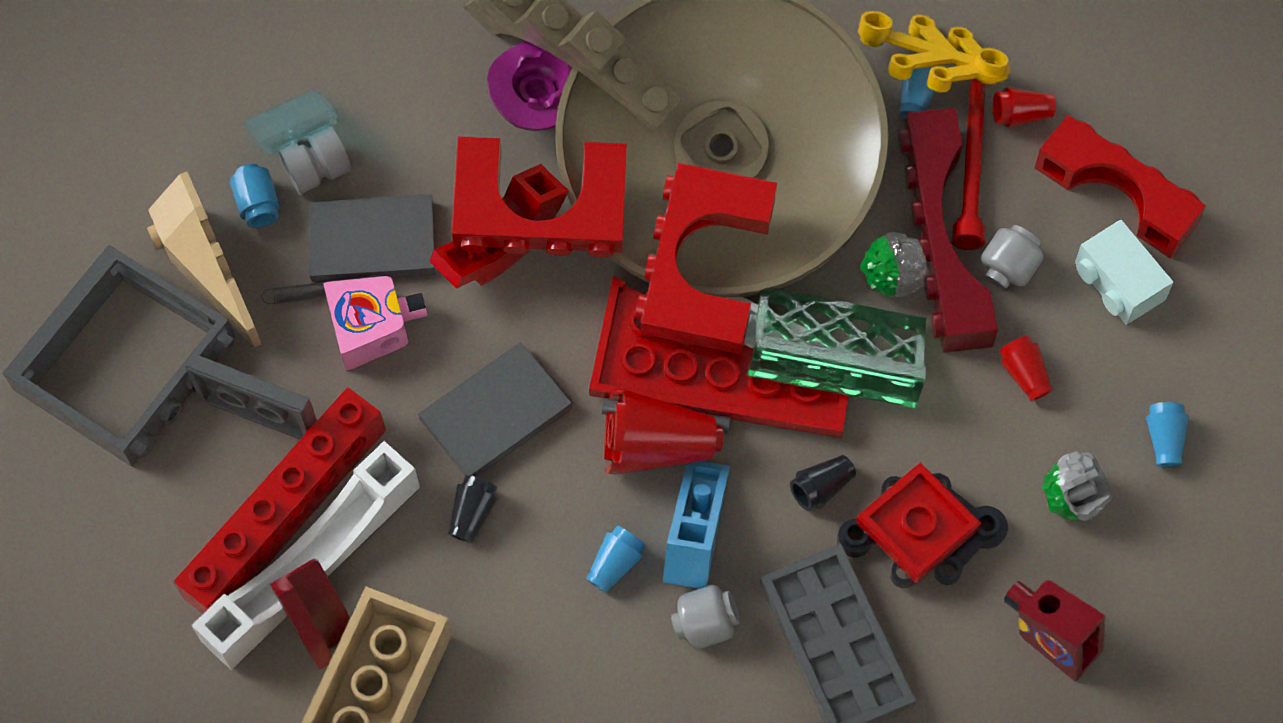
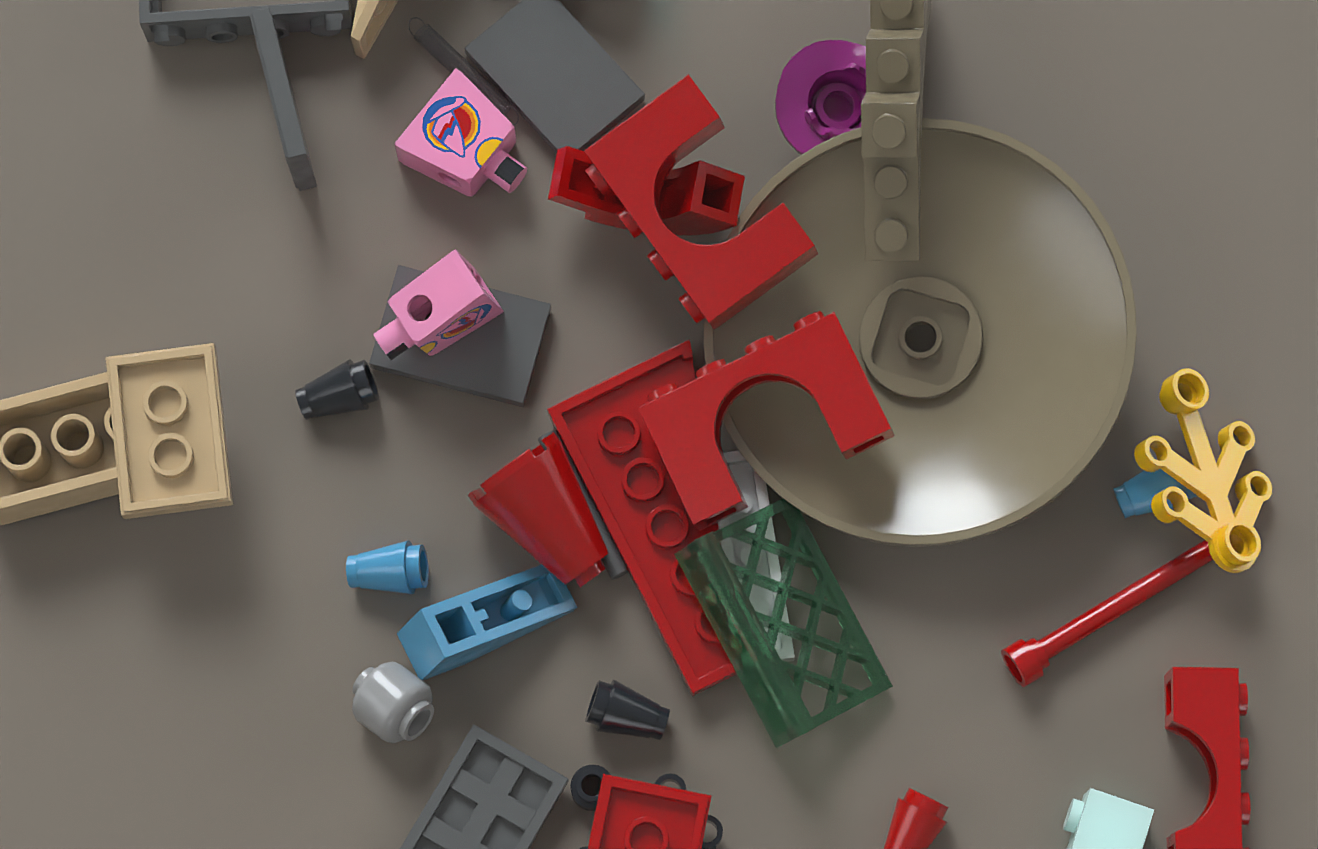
camera: 50 degrees right, 10 degrees up
(282, 501) = (203, 211): red brick -> none
(313, 609) = (111, 320): dark red panel -> none
(370, 497) = (79, 270): white arch -> none
(419, 617) = (169, 431): none -> tan tile
(473, 383) = (457, 303): none -> bright pink torso
(894, 265) = (920, 611): piece -> none
(961, 303) = (1088, 560): dark red arch -> none
(1012, 257) = (1028, 726): light grey head -> none
(1020, 107) = (1220, 612): red cone -> none

